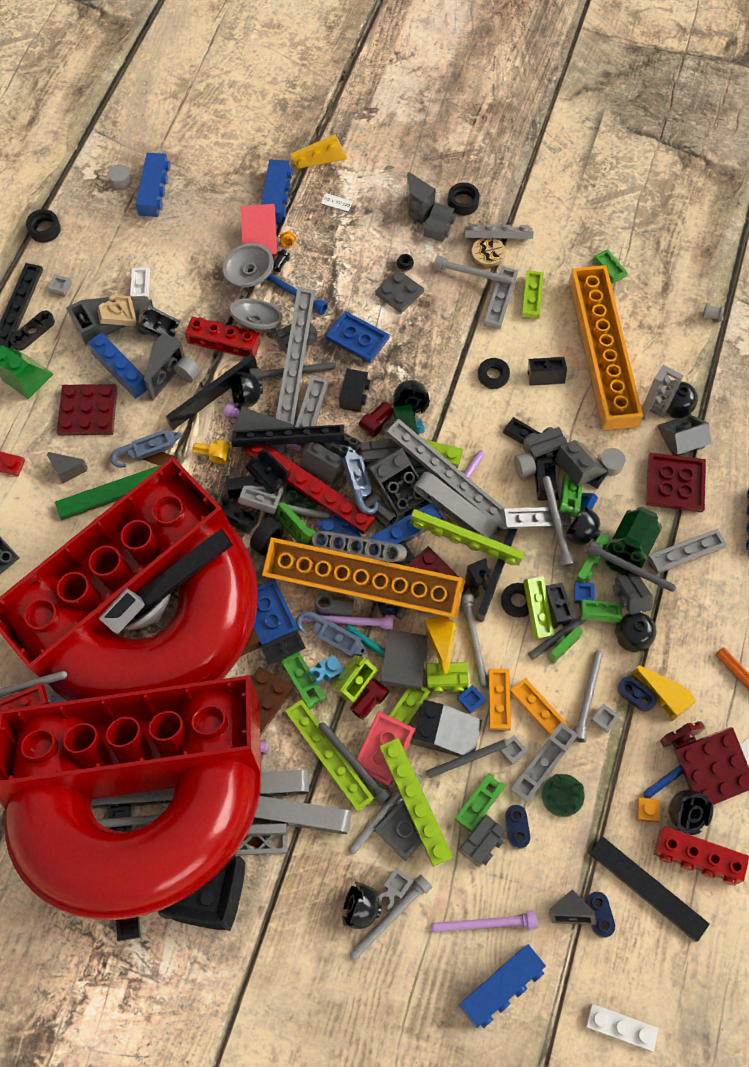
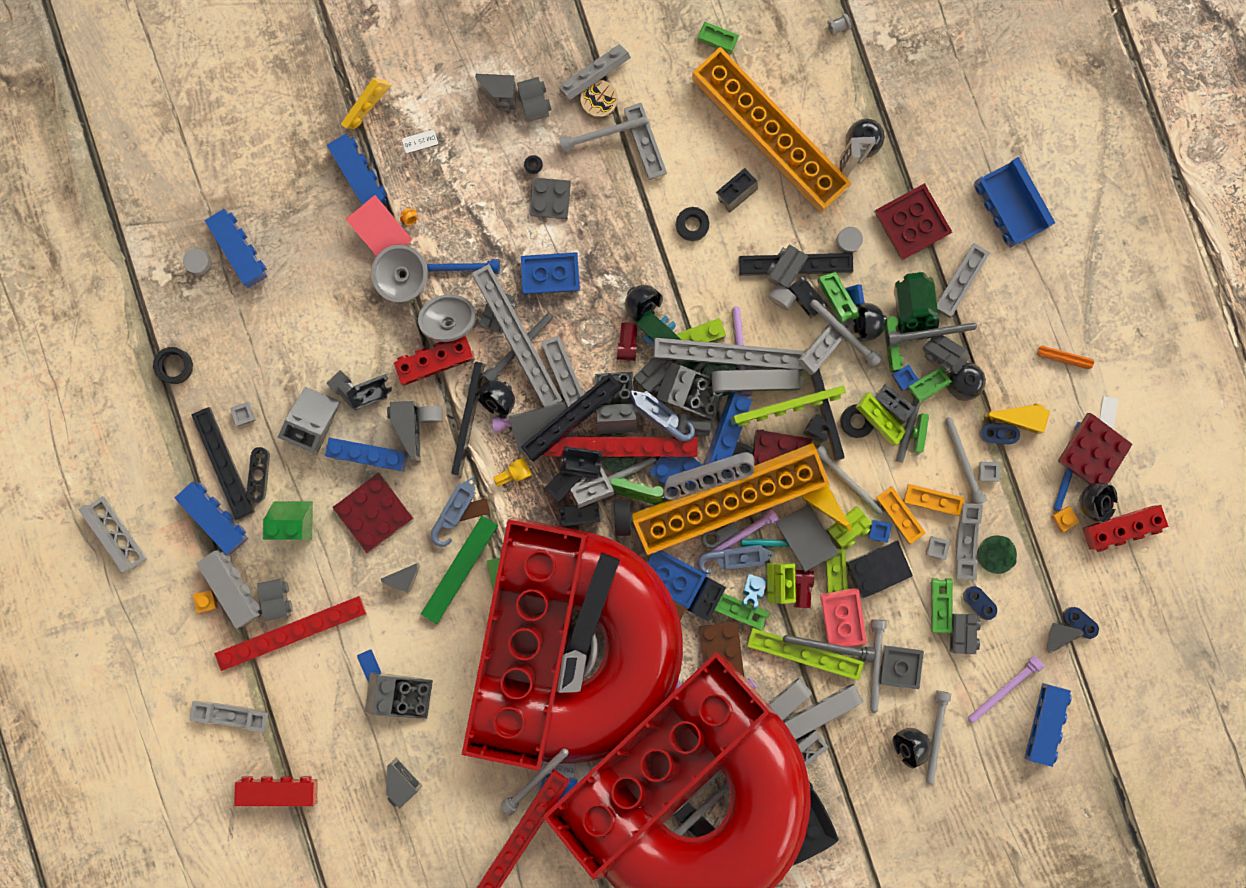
camera: 40 degrees left, 20 degrees up
(117, 311) = (324, 405): tan plate -> none
(140, 283) = (314, 359): white plate -> none
(281, 259) = (420, 243): black pin -> none
(354, 390) = (588, 329): black brick -> none
(397, 885) = (925, 710): light grey plate -> none
(416, 802) = (897, 643): lime plate -> none
(466, 189) = (536, 42): black tyre -> none
(466, 759) = (909, 581): dark grey bar -> none
(532, 294) = (670, 117): lime plate -> none
(579, 463) = (827, 264): dark grey slope -> none
(622, 1027) = (1145, 689): white plate -> none
(649, 889) = (1102, 578): black tile -> none
(683, 735) = (1056, 443): dark red plate -> none
(685, 434) = (892, 169): dark grey slope -> none

